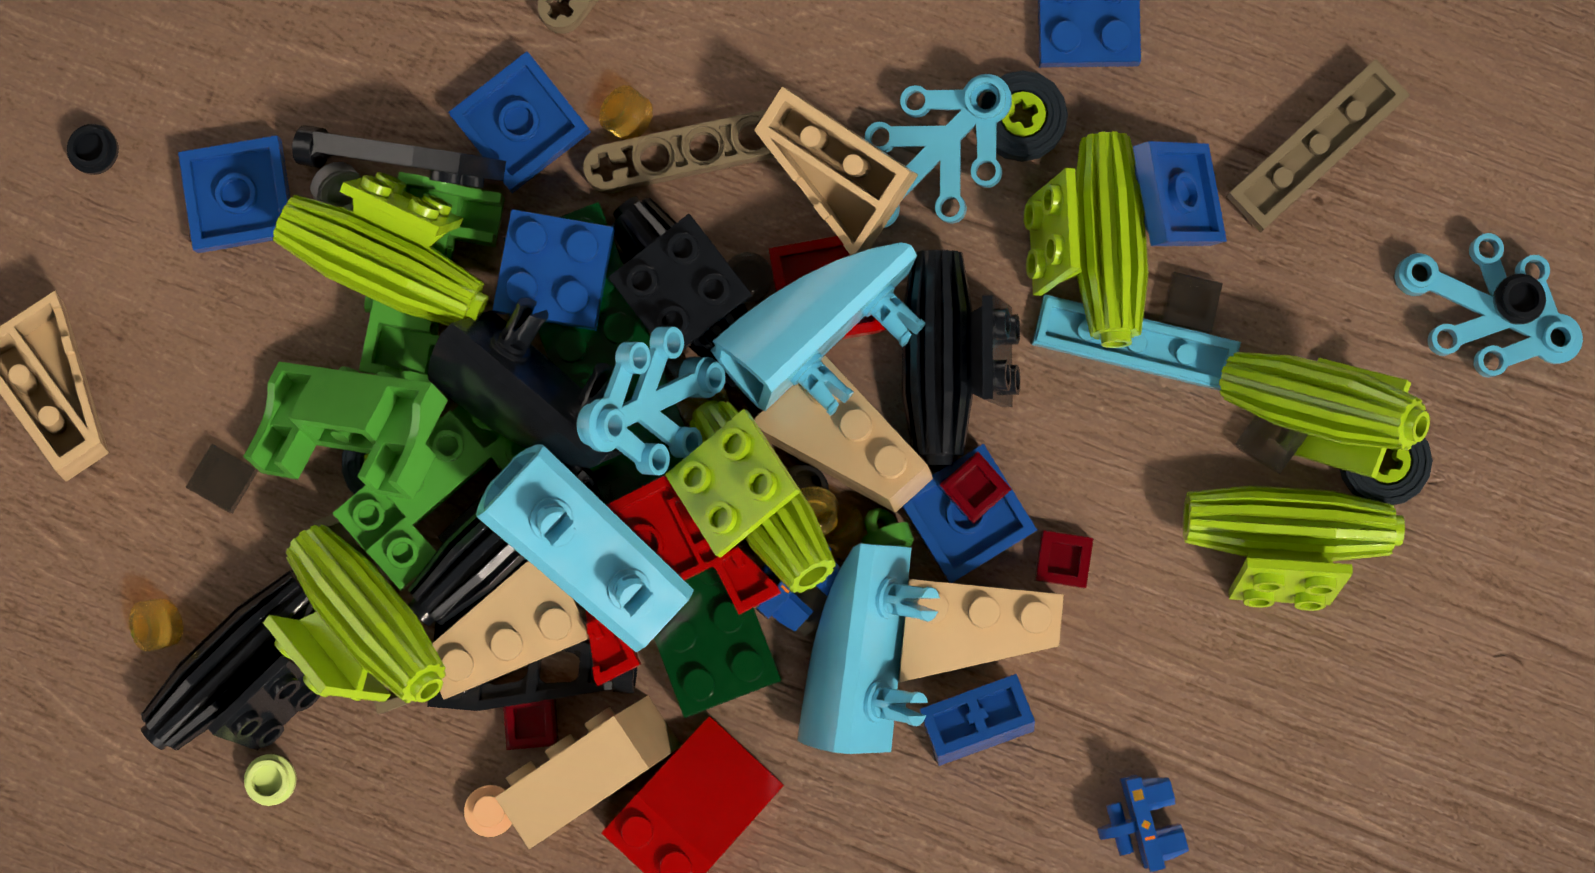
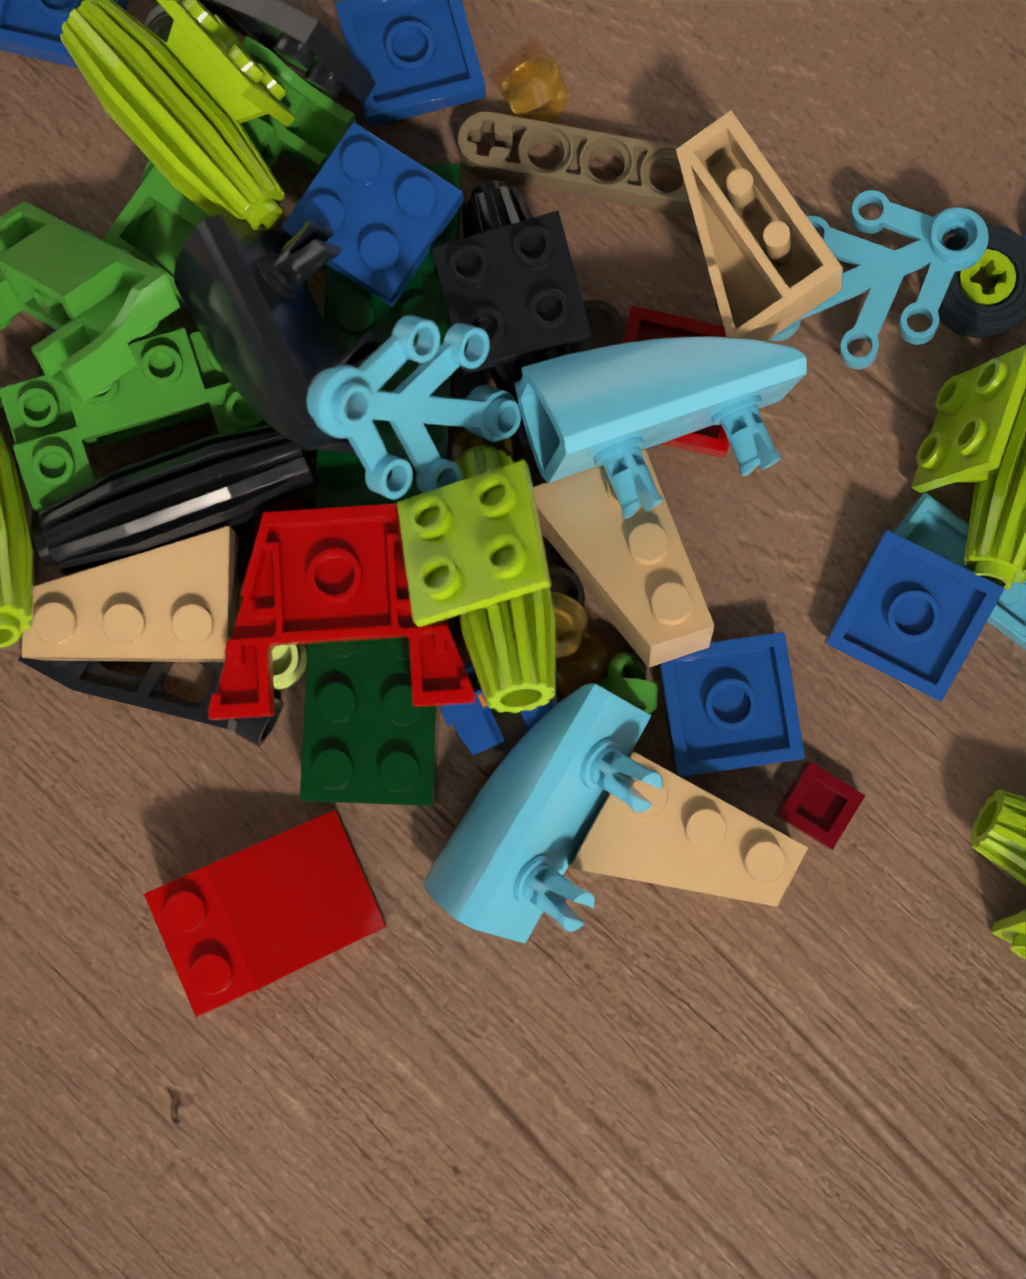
camera: 20 degrees right, 0 degrees up
(484, 812) = (36, 810): light nougat plate -> none
(531, 725) = (128, 733): dark red tile -> none
(582, 546) = (257, 543): medium azure piece -> none
(586, 769) = (163, 812): tan wedge -> none
(953, 356) = (793, 514): black plate -> none
(975, 487) = (754, 678): dark red tile -> none
(978, 719) = (643, 949): blue hinge -> none
(1072, 391) = (913, 615): none -> blue plate
(1153, 844) = (786, 1185): blue hips -> none

